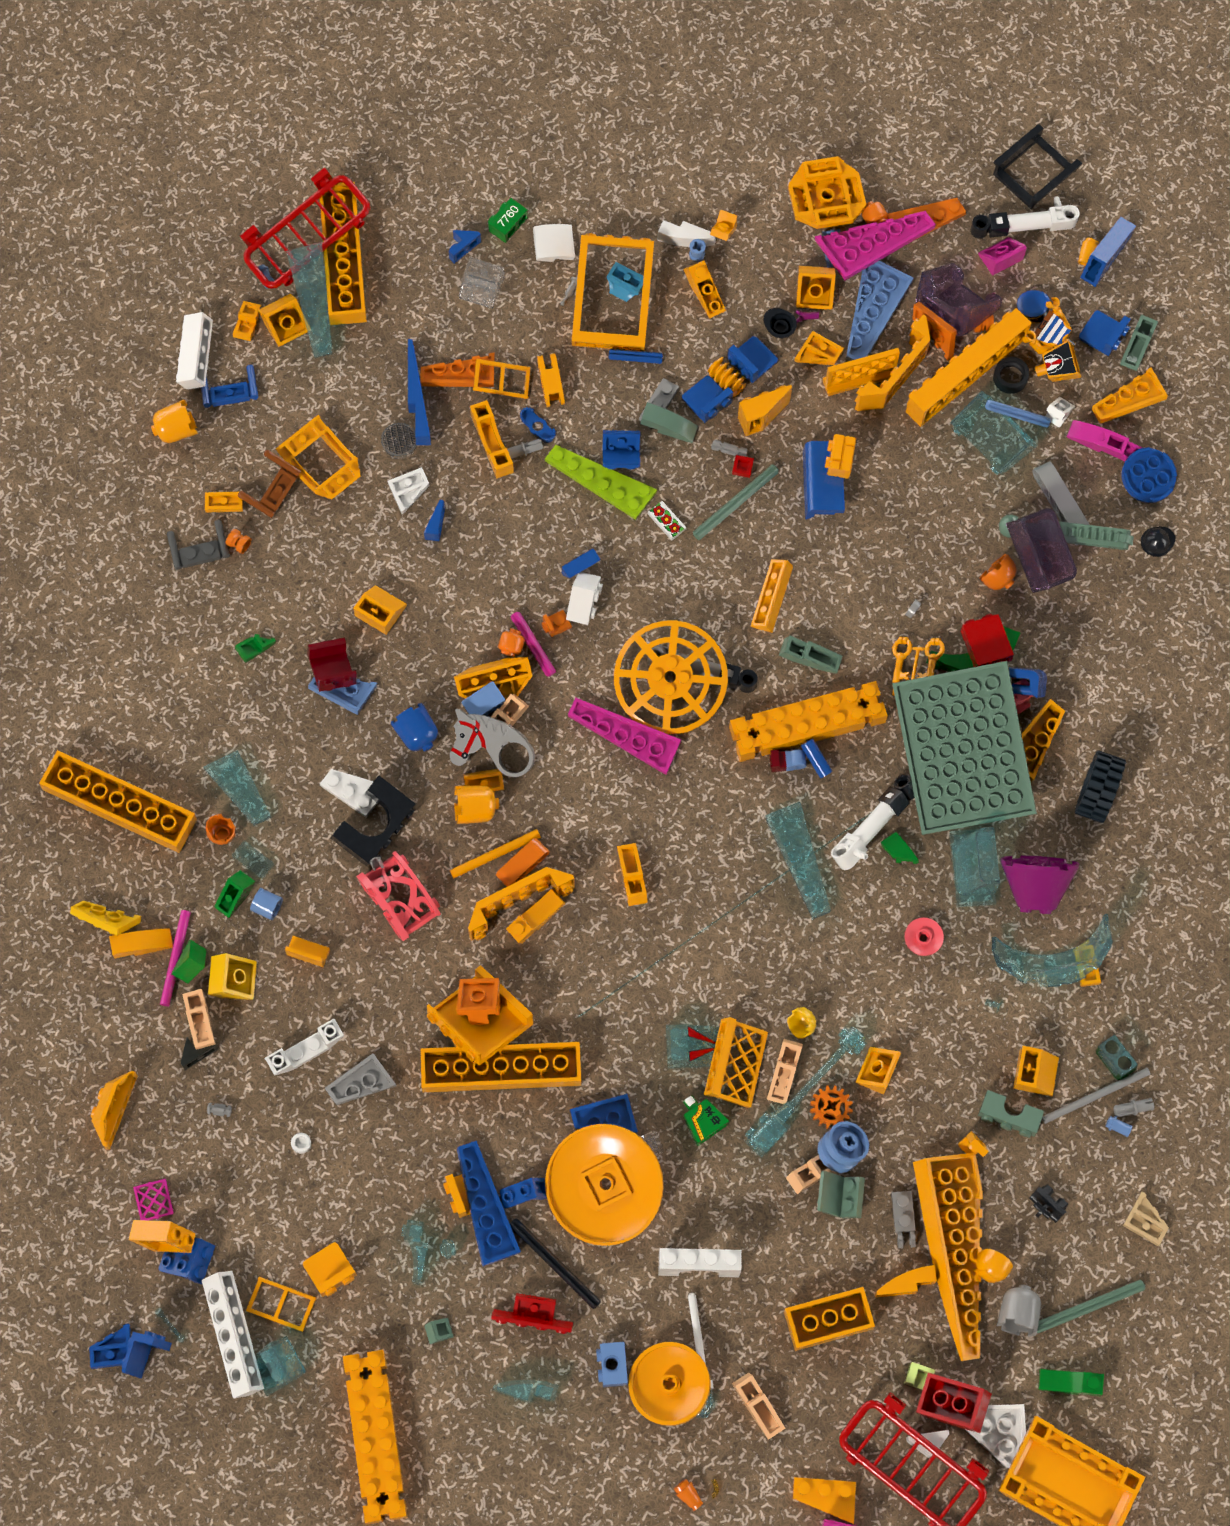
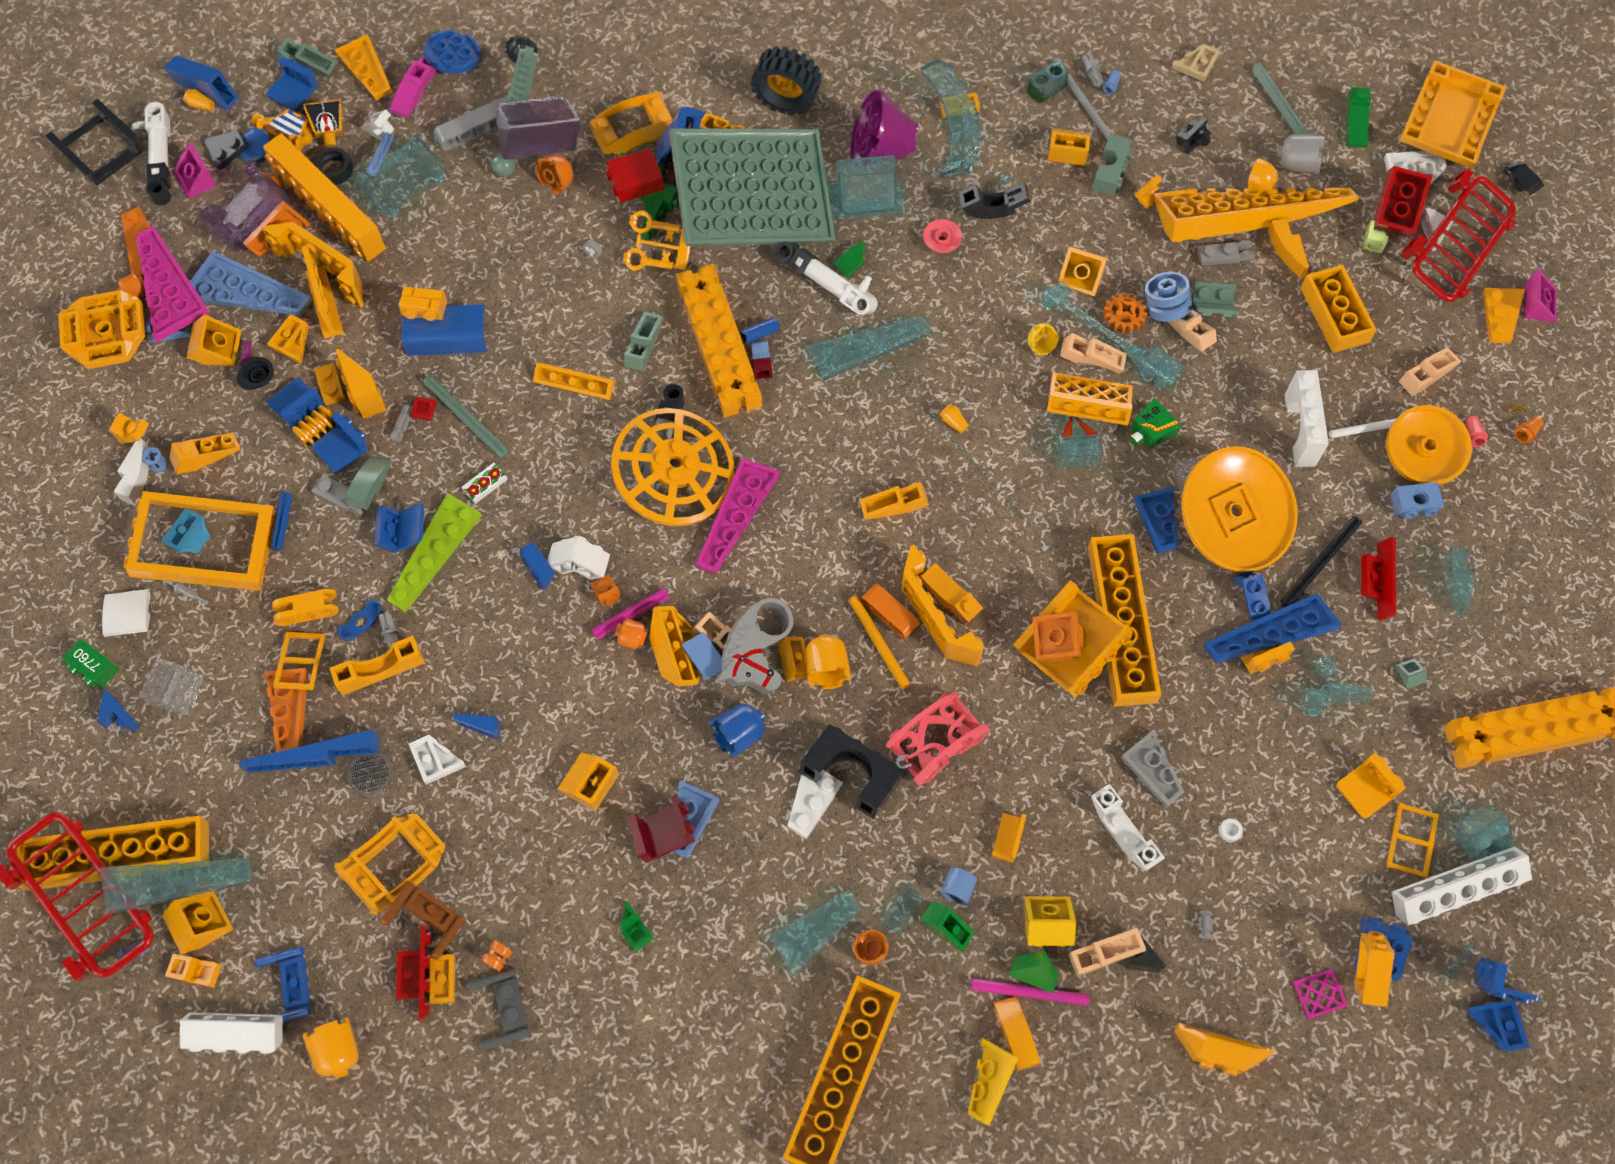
camera: 90 degrees left, 5 degrees down
(228, 479) = (412, 974): none -> red bracket
(686, 1438) = (1476, 431): none -> coral cone
(719, 933) = (954, 418): none -> light orange cone
(770, 384) = (329, 384): none -> light orange plate
(960, 986) = (993, 205): none -> black arch
(1030, 279) = (226, 147): none -> wing
(1069, 672) = (606, 136): none -> light orange wedge

